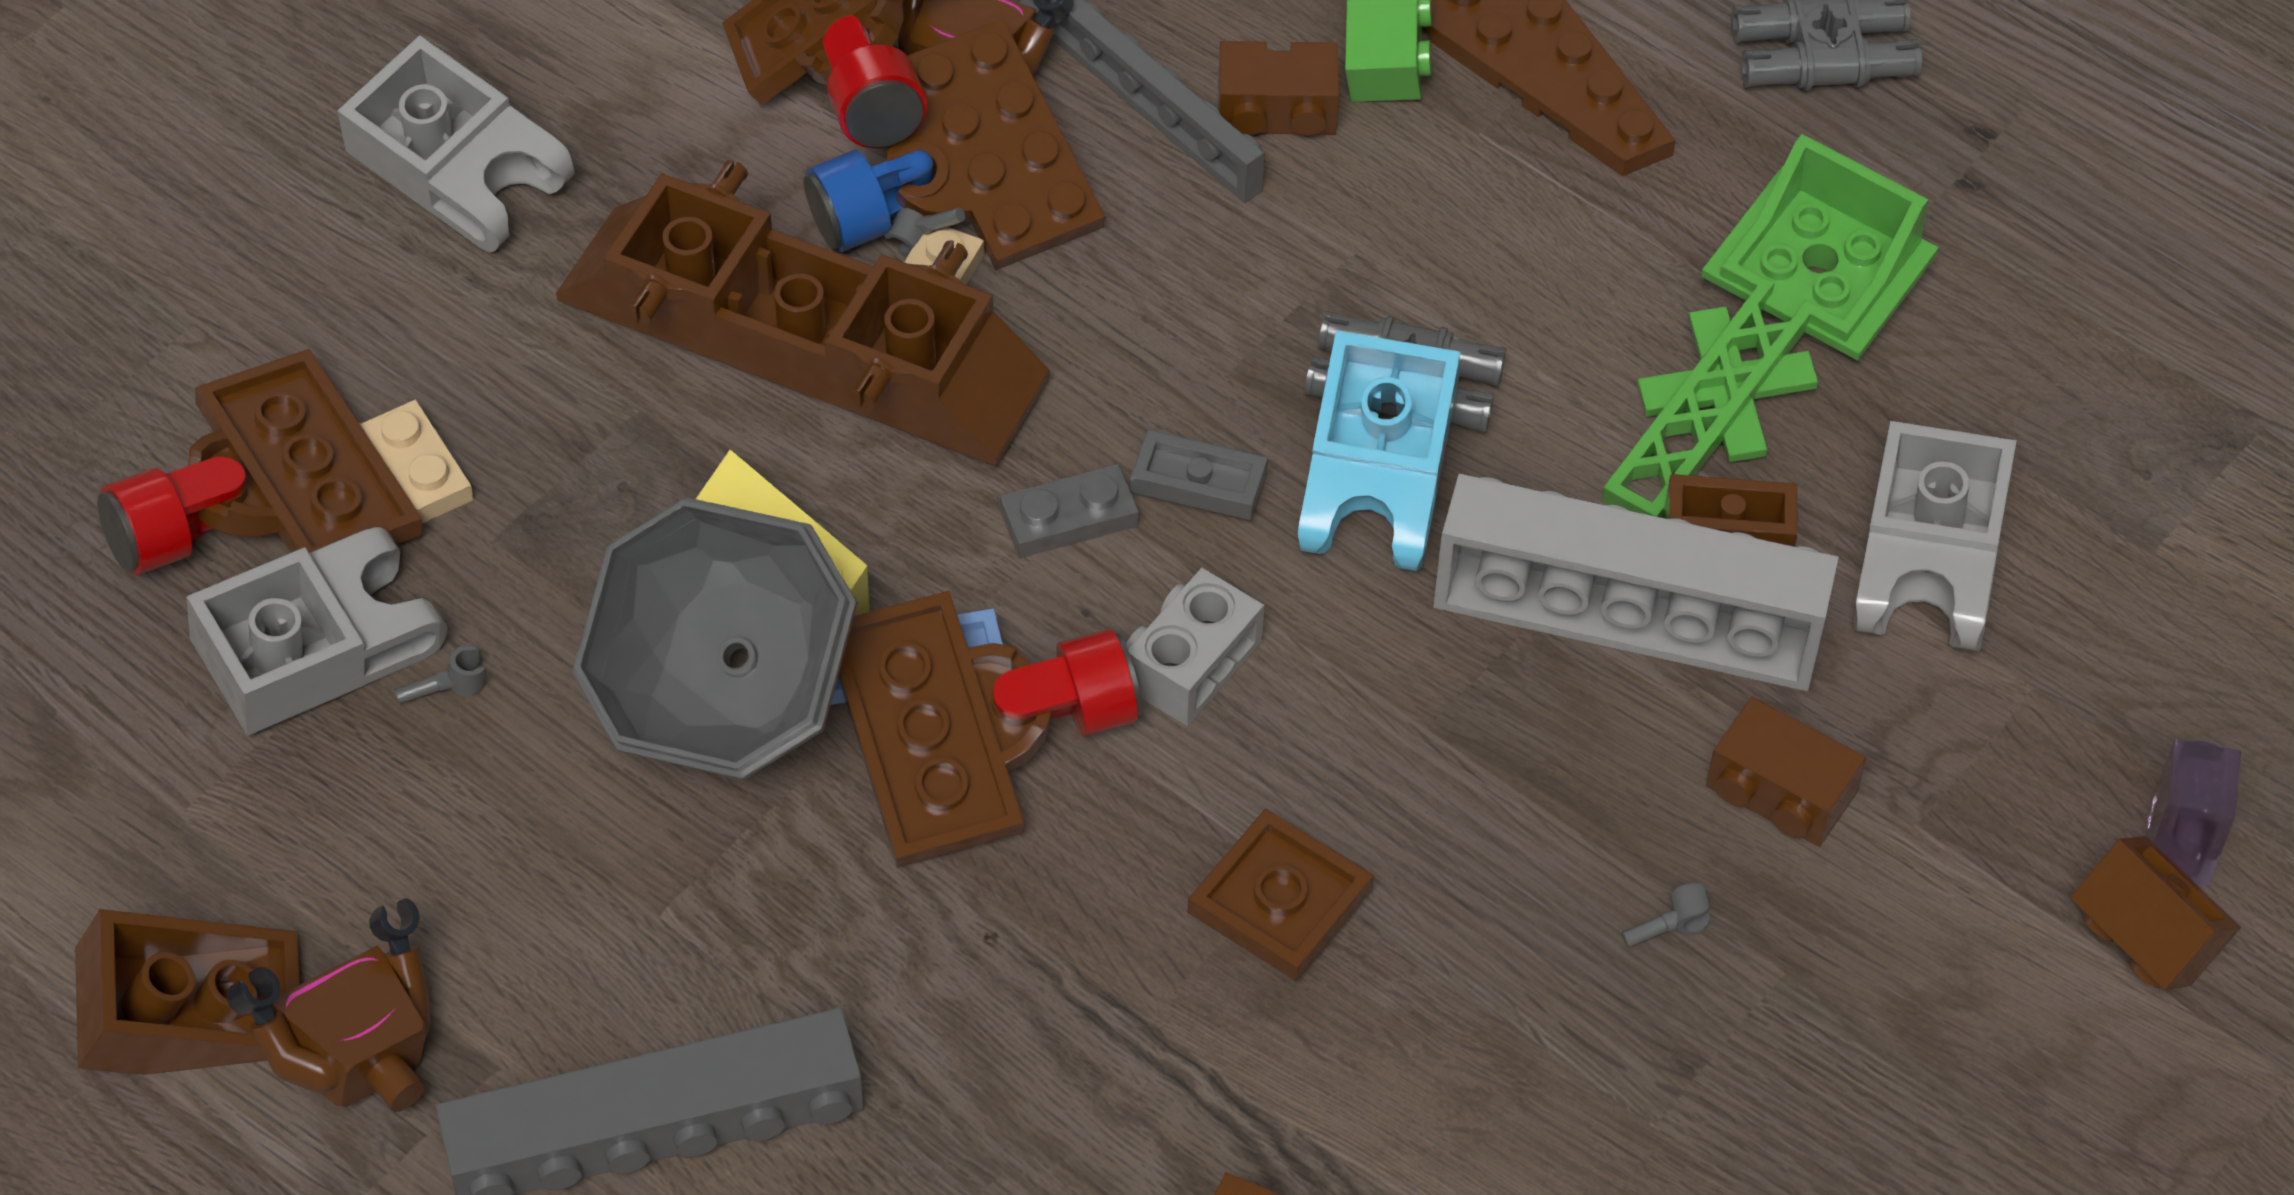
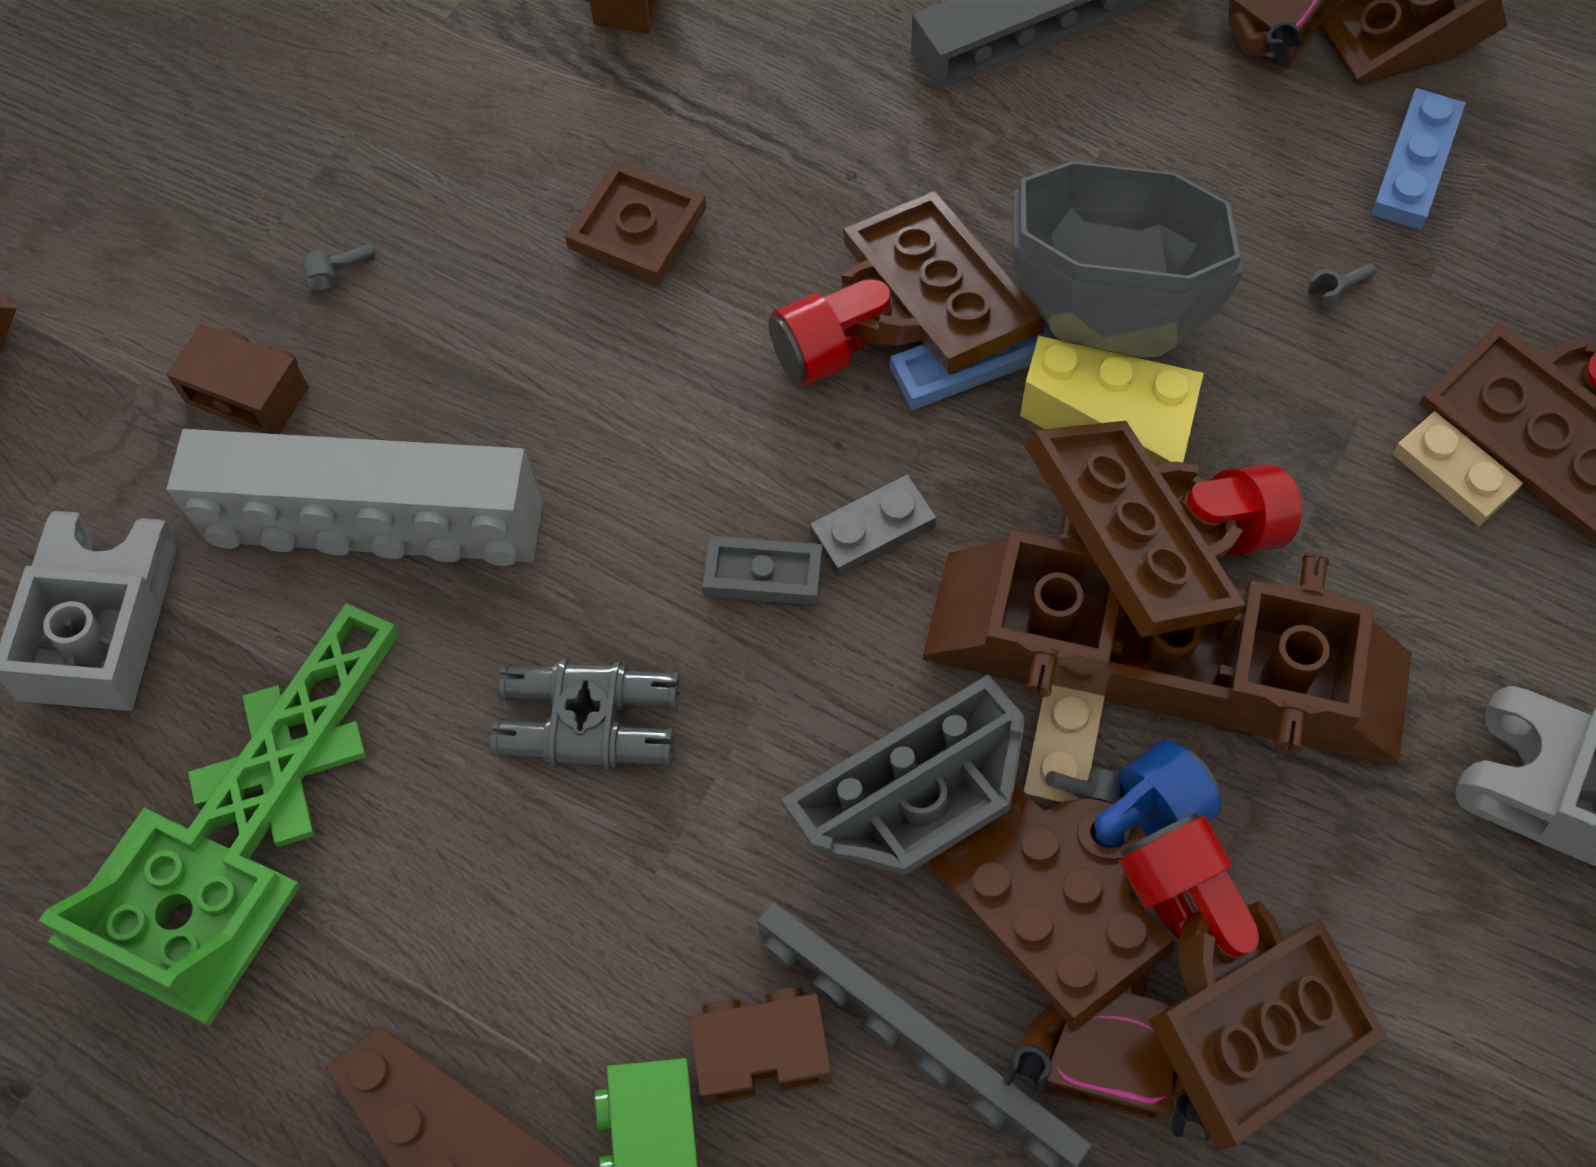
camera: 175 degrees right, 10 degrees up
(271, 818) = (1418, 159): none -> medium blue plate
(309, 628) = (1468, 269): light grey brick -> none
(793, 366) = (1161, 525): none -> reddish brown plate
(1093, 225) = (917, 784): none -> dark grey wedge
(1203, 651) = (727, 398): light grey brick -> none
(1377, 461) = (593, 595): medium azure brick -> none
(1735, 505) = (274, 579): reddish brown brick -> none

